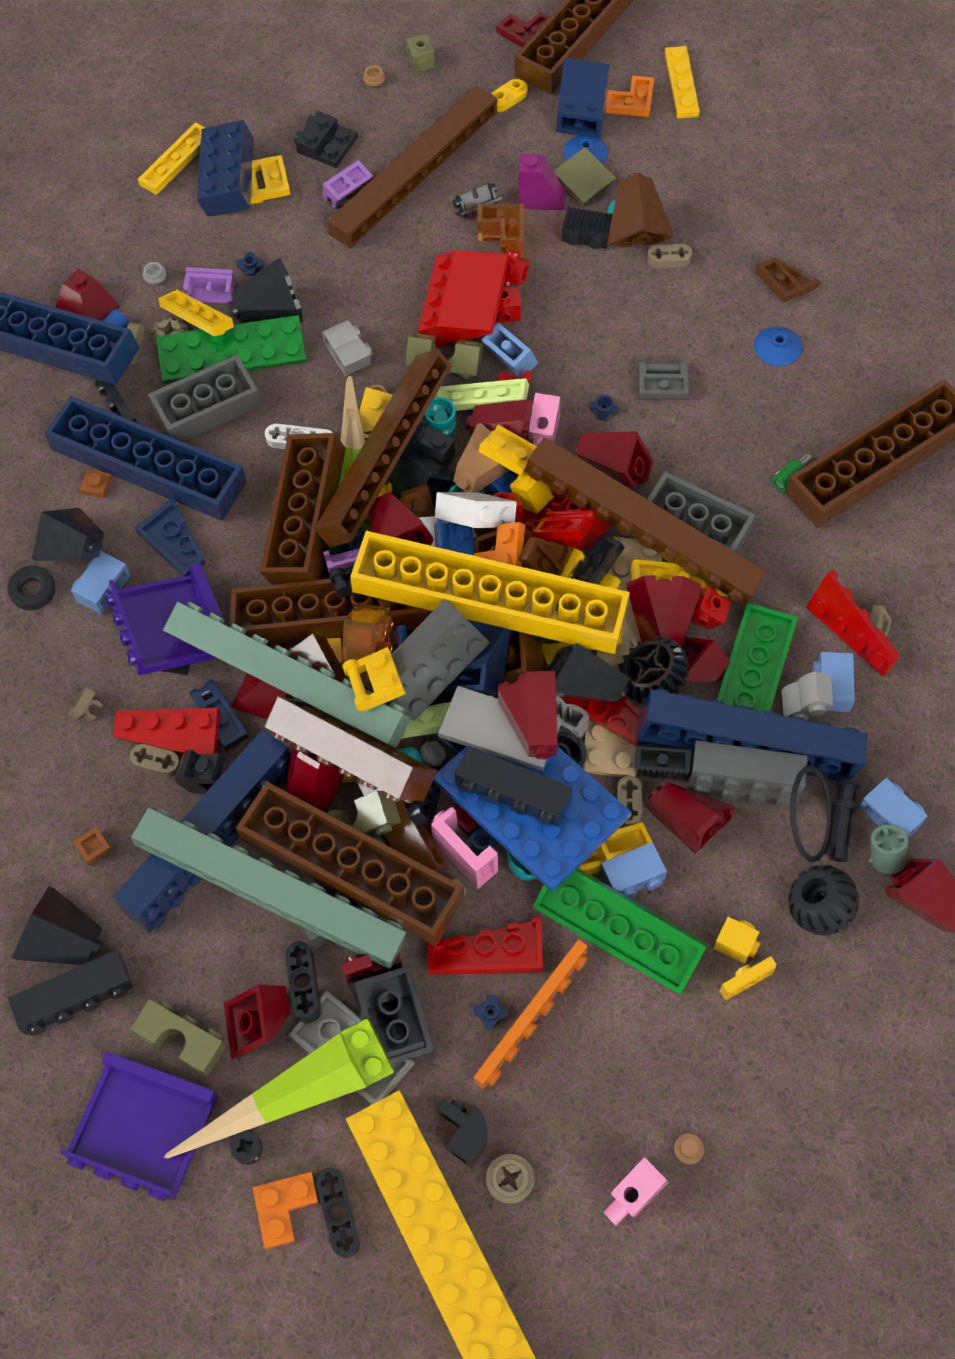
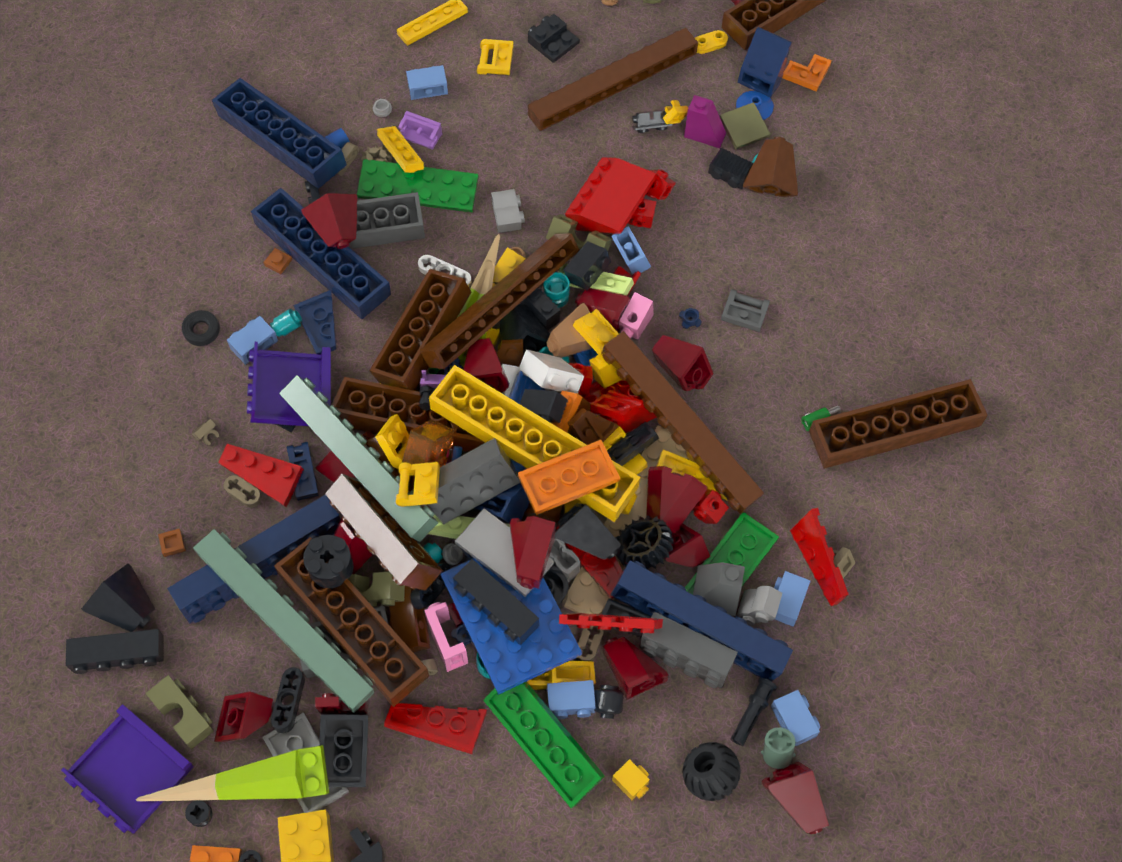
camera: 15 degrees right, 0 degrees up
(67, 536) = (238, 296): black slope -> none
(85, 297) = (321, 113): dark red slope -> none
(134, 550) = (286, 322): none -> teal brick
(151, 411) = (334, 218): none -> dark red slope
(197, 229) = (427, 82): none -> medium blue brick
(199, 771) = (268, 510): black brick -> none
(225, 168) = (466, 39): dark blue brick -> none
(250, 269) = (458, 126): dark blue plate -> none
(266, 296) = (458, 152): black slope -> none
(296, 786) = (329, 549): none -> black brick
(319, 636) = (390, 437): none -> yellow plate
(346, 183) = (554, 78): medium lavender hinge -> none
(468, 379) = (587, 265): none -> black brick
(487, 543) = (545, 404): none -> black brick
(499, 1012) = (418, 778): dark blue plate -> none
(502, 224) = (665, 147): clear orange brick -> none
(504, 182) = (675, 114): none -> yellow tile
(525, 1024) = (442, 790): orange plate -> none
(549, 616) = (568, 477): none -> orange plate
(645, 770) = (605, 622): none -> red wing
(669, 255) = (789, 210): dark tan beam -> none
(678, 860) = (608, 701): none -> black head
(681, 82) = (854, 70): yellow plate -> none
(704, 511) = (733, 429): dark grey brick -> none
(747, 977) = (628, 812): yellow plate -> none
(755, 686) = (720, 585): none -> dark grey slope
(778, 353) = (846, 316): blue dish -> none
(785, 279) = (874, 257): reddish brown wing -> none
(804, 770) = (705, 695): black piece -> none

